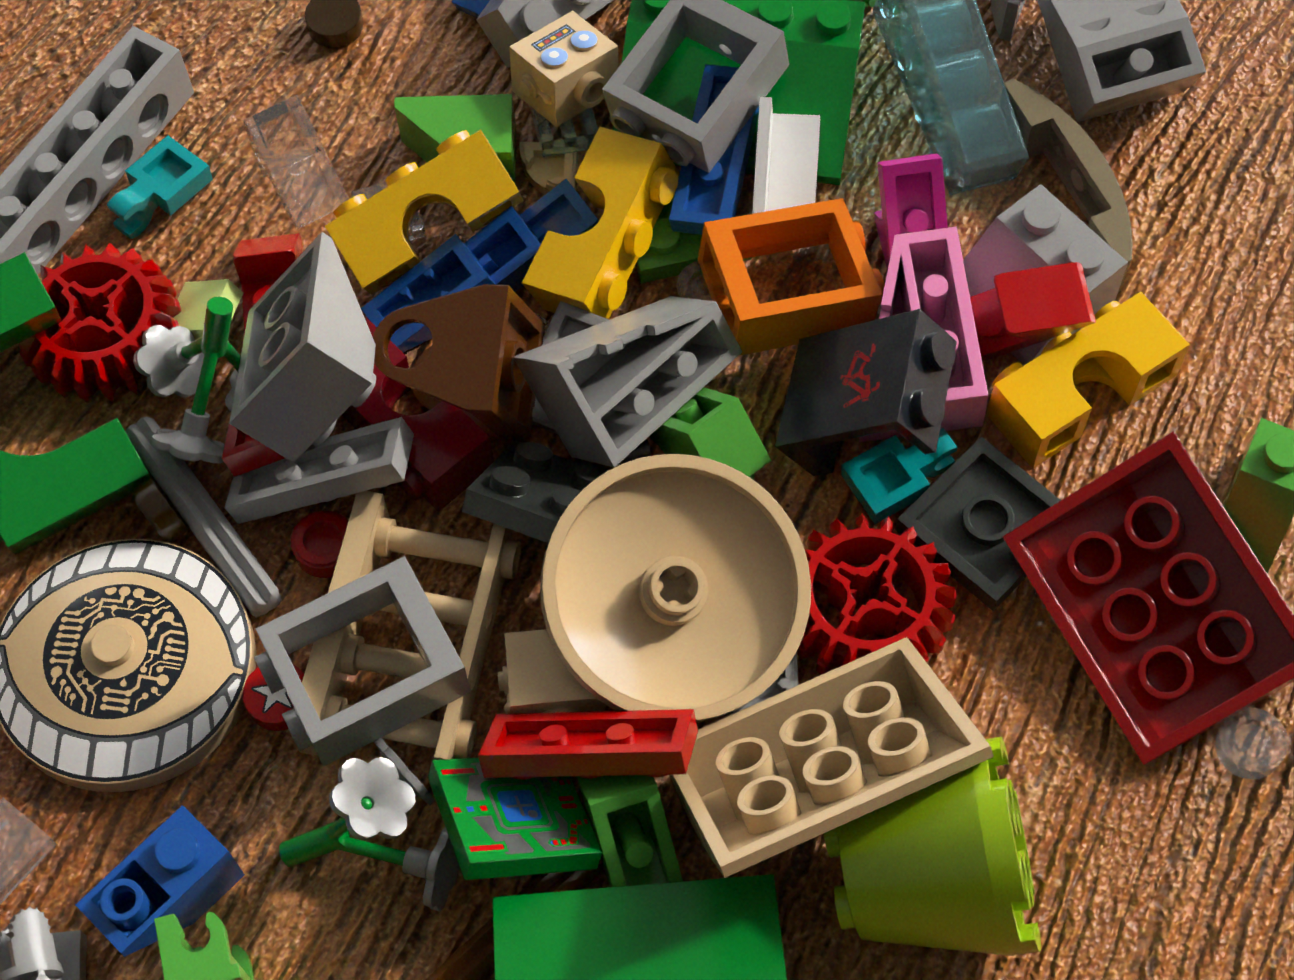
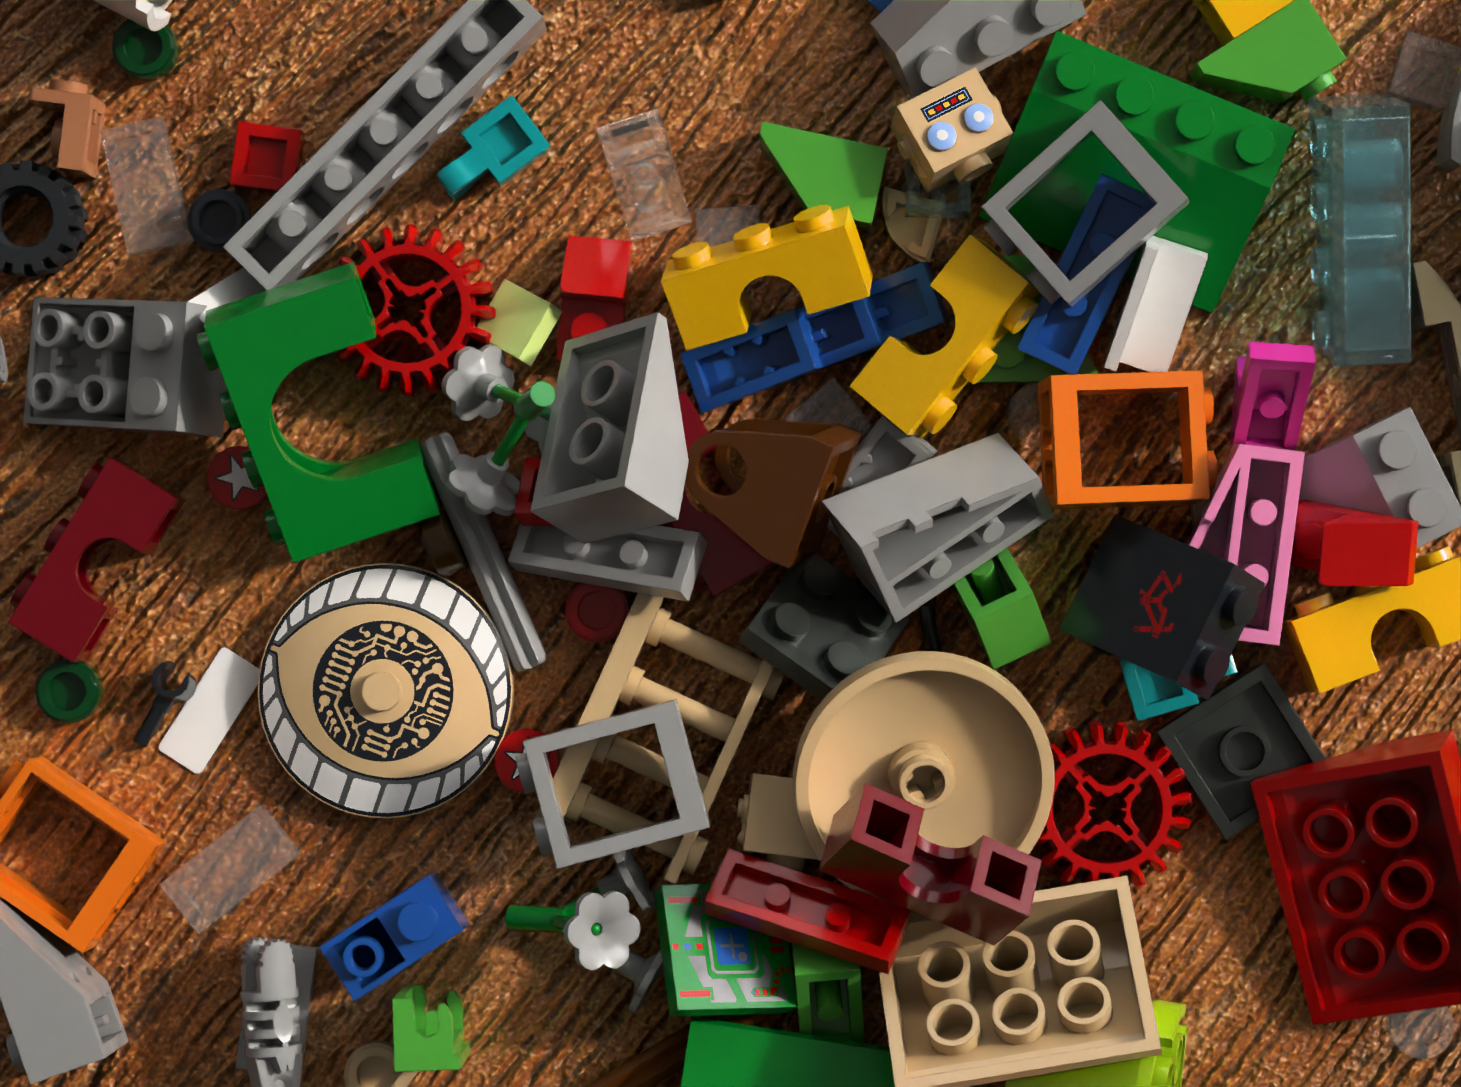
camera: 15 degrees right, 25 degrees up
(748, 670) = (970, 888): none -> dark red arch

